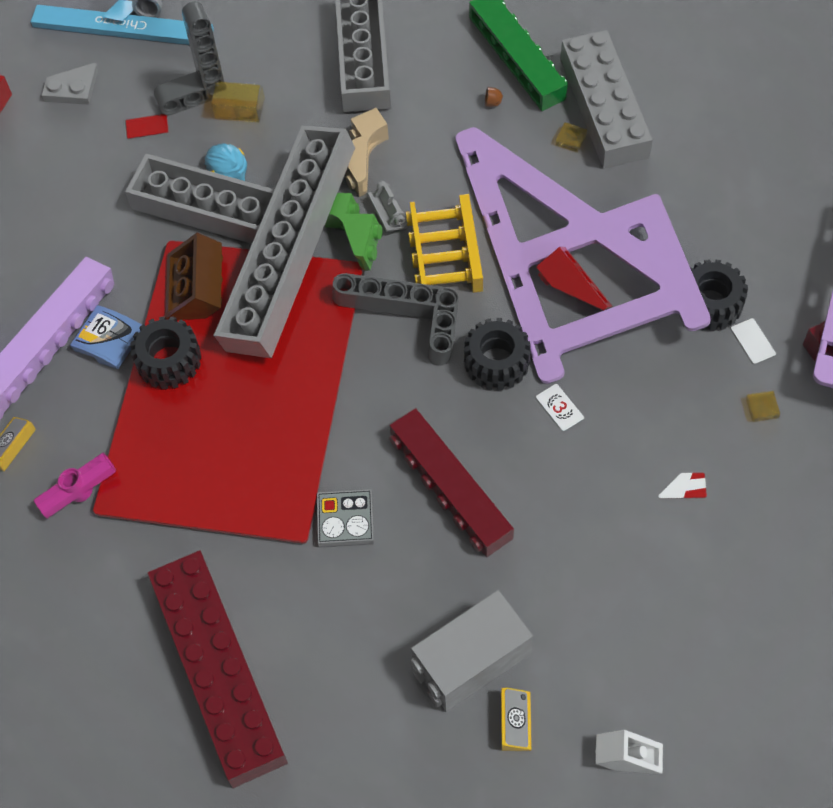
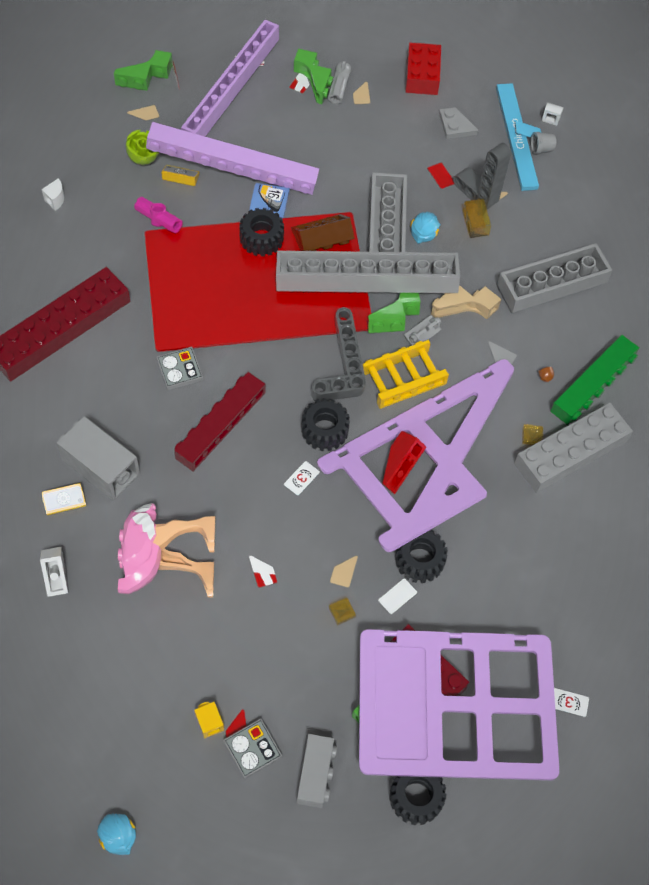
camera: 65 degrees right, 0 degrees up
(444, 138) = (500, 353): none -> light grey sticker
(632, 611) = (145, 553): none -> animal
(707, 392) = (343, 572): none -> tan sticker

